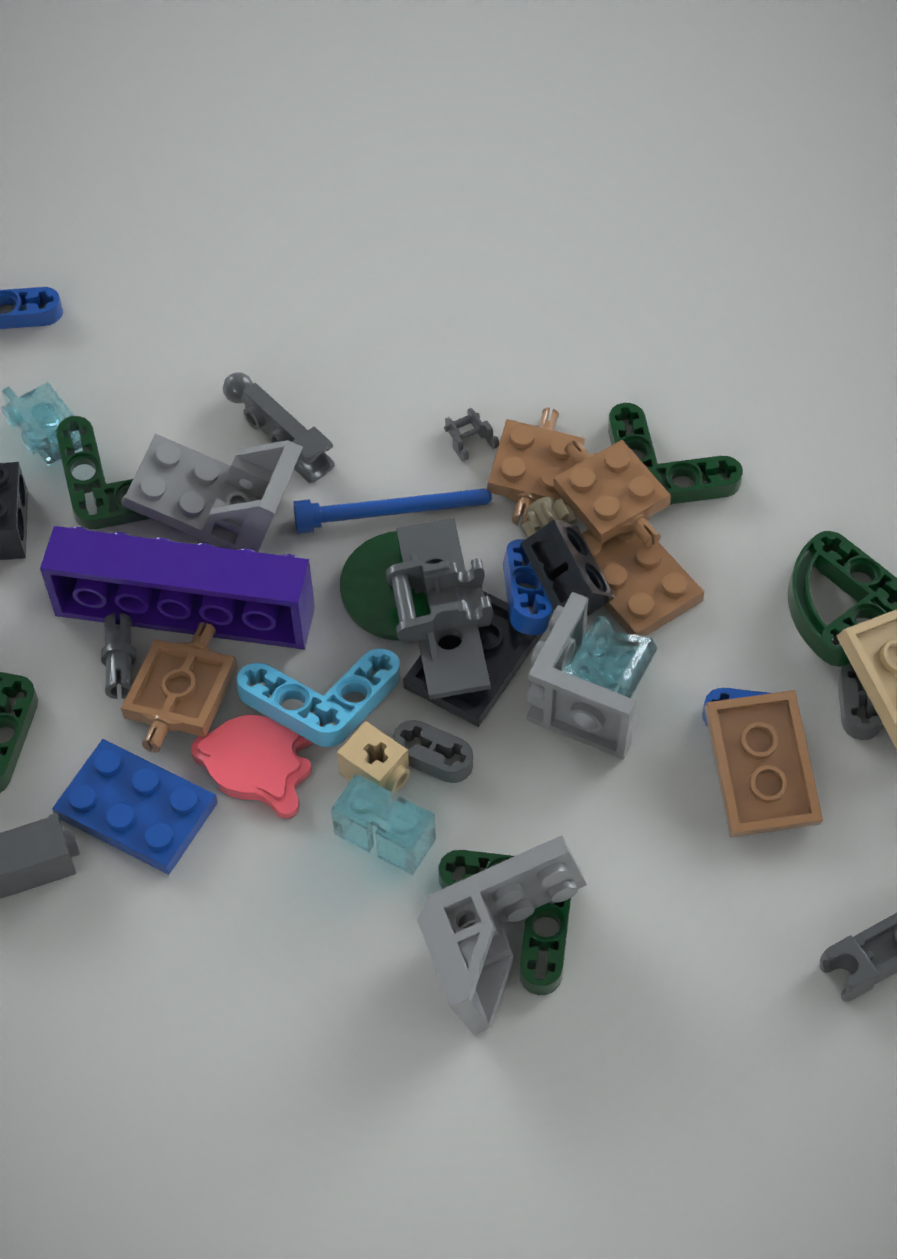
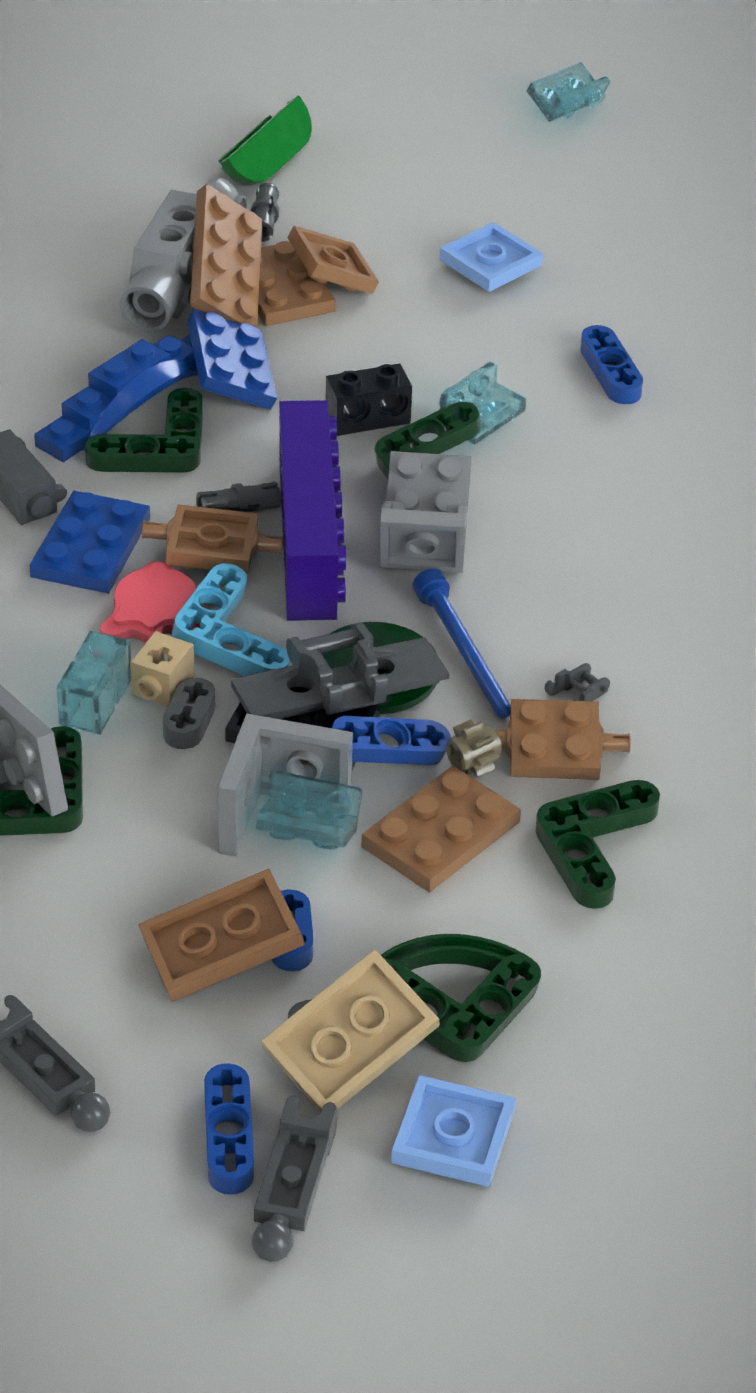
camera: 75 degrees right, 15 degrees down
(269, 416) = (529, 553): dark grey plate -> none
(566, 565) = (403, 747): black brick -> none
(612, 492) = (521, 781): medium nougat plate -> none

